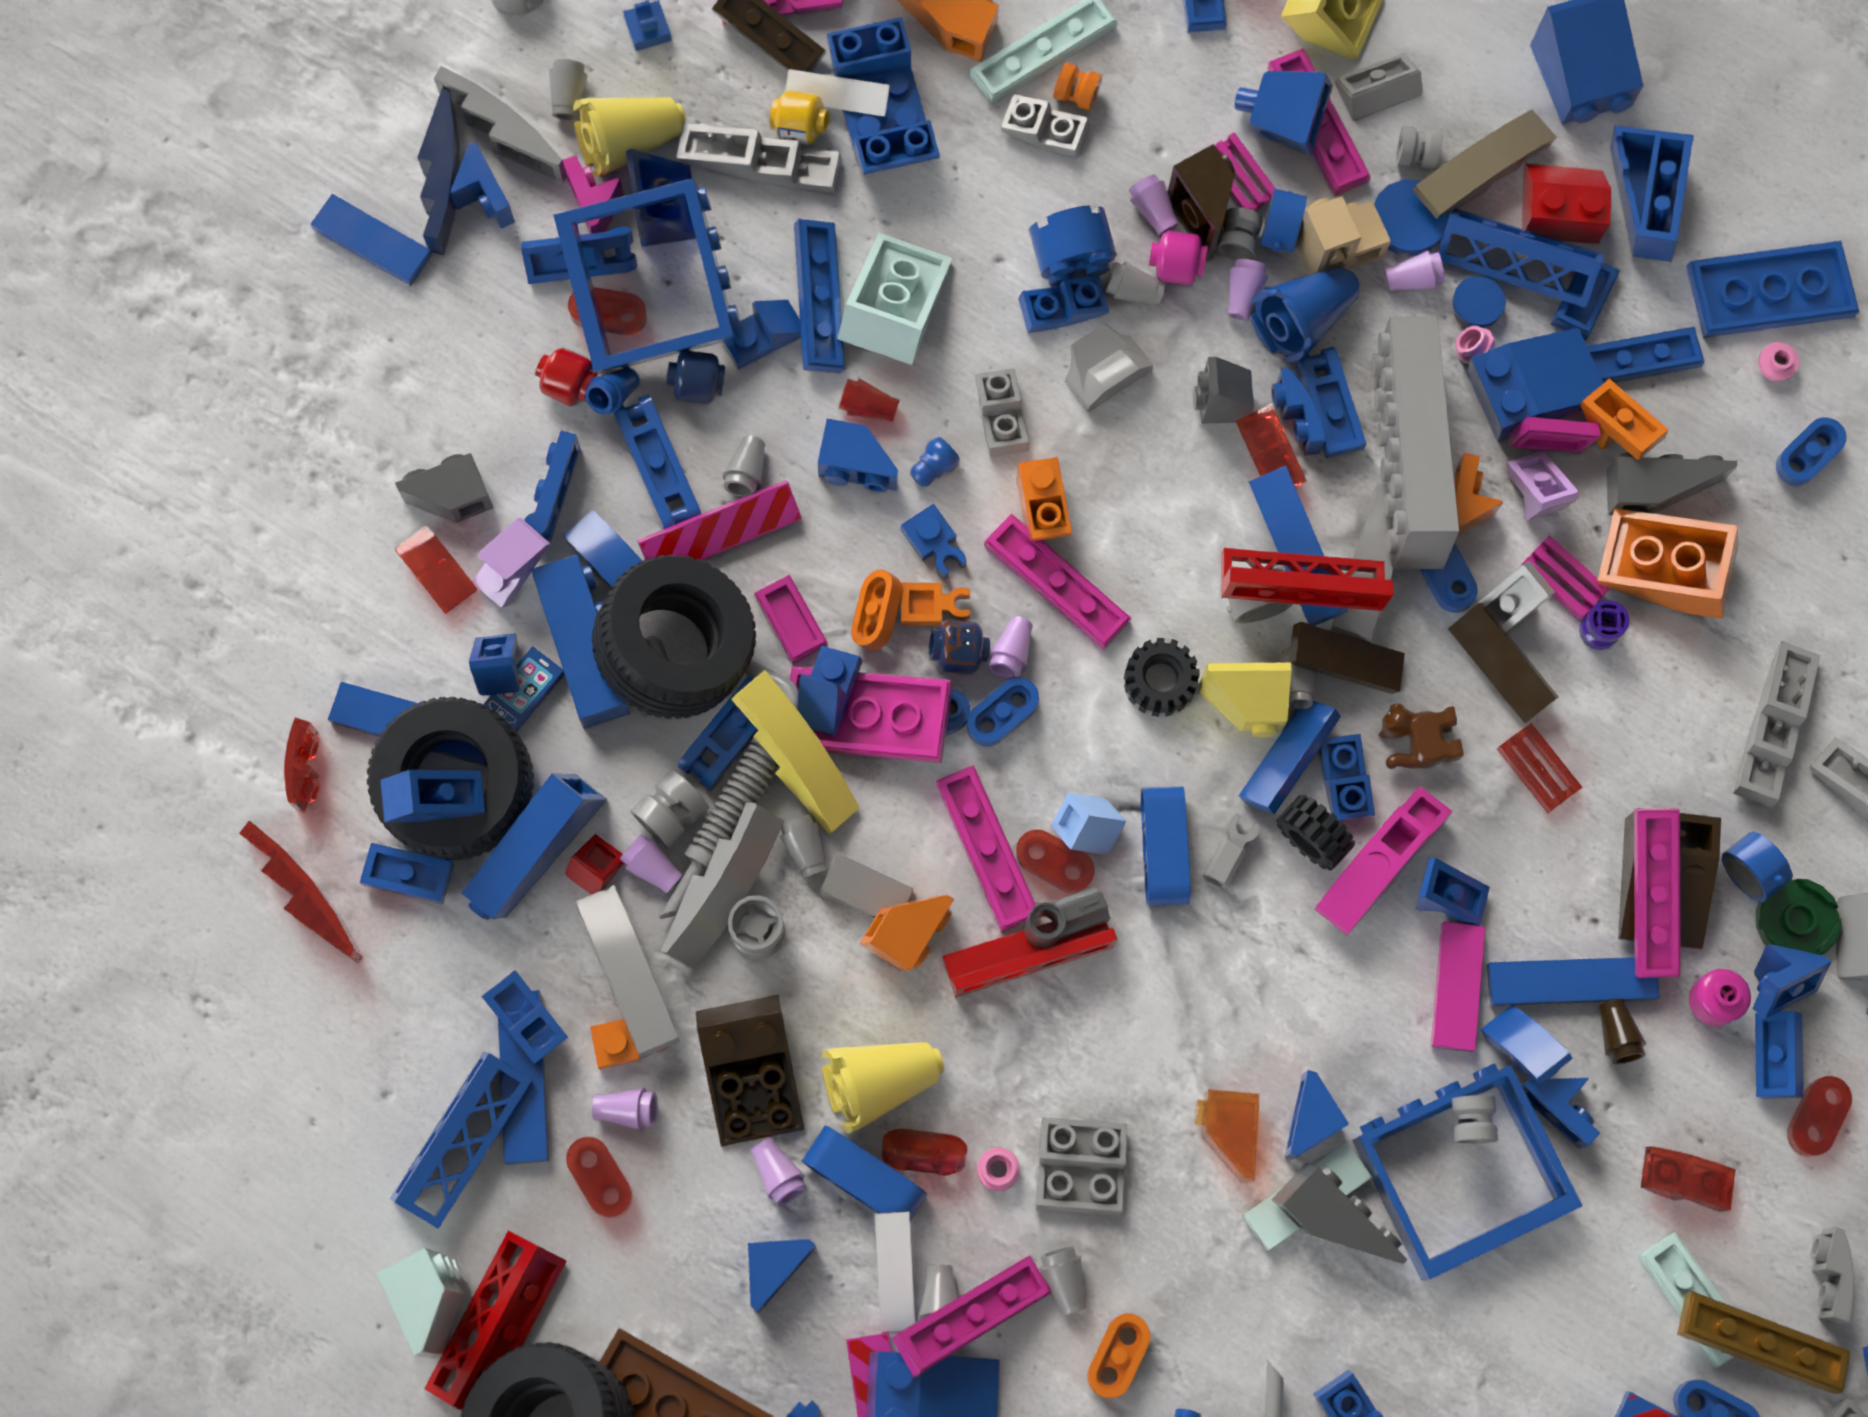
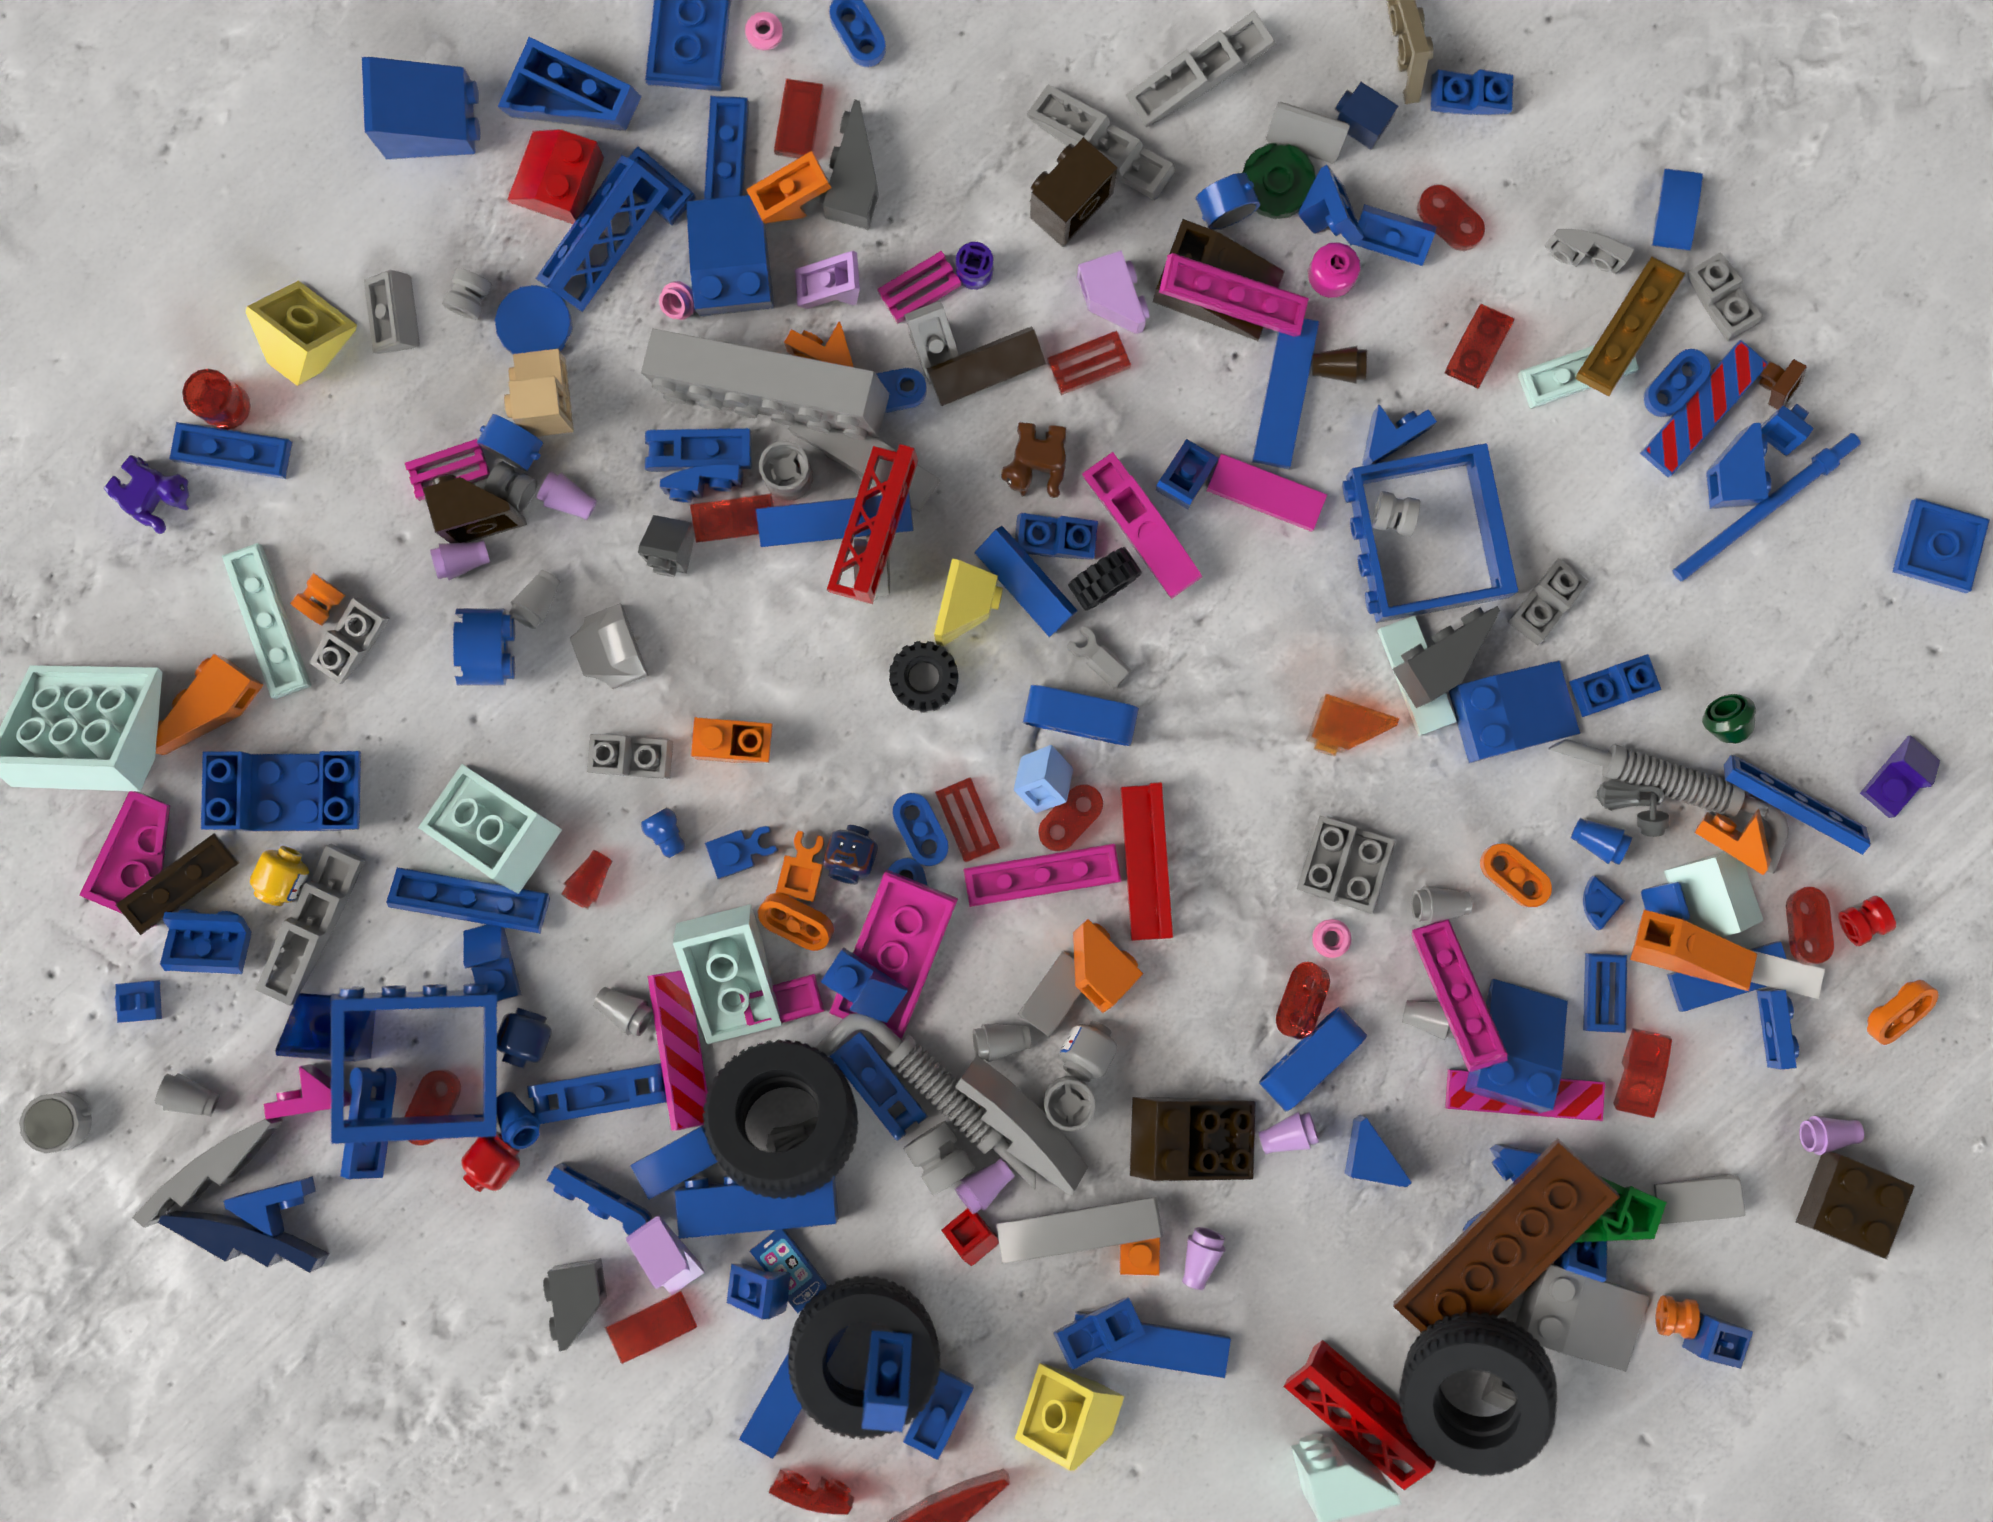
camera: 75 degrees left, 10 degrees up
(371, 239) = (295, 1322): blue tile -> none
(431, 1006) = (1067, 1416): none -> light yellow slope
(446, 1131) = (1190, 1430): blue fence -> none
(532, 844) = (941, 1291): blue slope -> none
(600, 1177) = (1257, 1297): clear red plate -> none
(617, 124) = (245, 1048): light yellow cone -> none
(718, 68) = (205, 942): none -> blue bracket
(798, 751) = (917, 1029): light yellow slope -> none
(815, 936) = (1088, 1051): none -> light grey head
(817, 549) = (719, 961): none -> light aqua slope
(841, 92) = (263, 830): white sticker -> none
(855, 456) = (638, 906): blue slope -> none
(877, 1079) = (1231, 1026): light yellow cone -> none
(894, 1271) = (1401, 1051): white sticker -> none
(997, 779) = (980, 850): none -> clear red tile
(1011, 650) = (863, 806): lavender cone -> none
(1057, 582) = (808, 747): dark pink tile -> none
(1062, 306) = (537, 670): blue slope -> none
(1069, 916) = (1127, 818): dark grey piece -> none
(1178, 258) = (521, 550): dark pink head -> none
(1287, 107) = (395, 406): blue torso -> none
(1299, 1313) = (1513, 711): none -> blue slope
(1301, 685) = (945, 546): light grey cone -> none
(1302, 311) = (604, 448): blue cone -> none
(1314, 1116) = (1354, 651): blue slope -> none
(1333, 488) = (786, 470): none -> light grey wheel
(1334, 147) = (413, 380): dark pink tile -> none
(1346, 658) = (950, 505): dark brown tile -> none
(1416, 273) = (592, 333): lavender cone -> none
(1429, 1323) = (1548, 601): none -> light grey slope
(1478, 301) = (635, 284): blue piece -> none
(1483, 164) = (500, 238): dark tan slope -> none
(1527, 1044) = (1335, 449): slope -> none
(1554, 435) = (786, 255): dark pink tile -> none
(1621, 768) = (1111, 293): none -> lavender slope
(1670, 561) = (930, 189): orange slope -> none
(1700, 417) = (798, 118): none -> clear red tile
(1713, 701) = (1072, 191): none -> dark brown brick

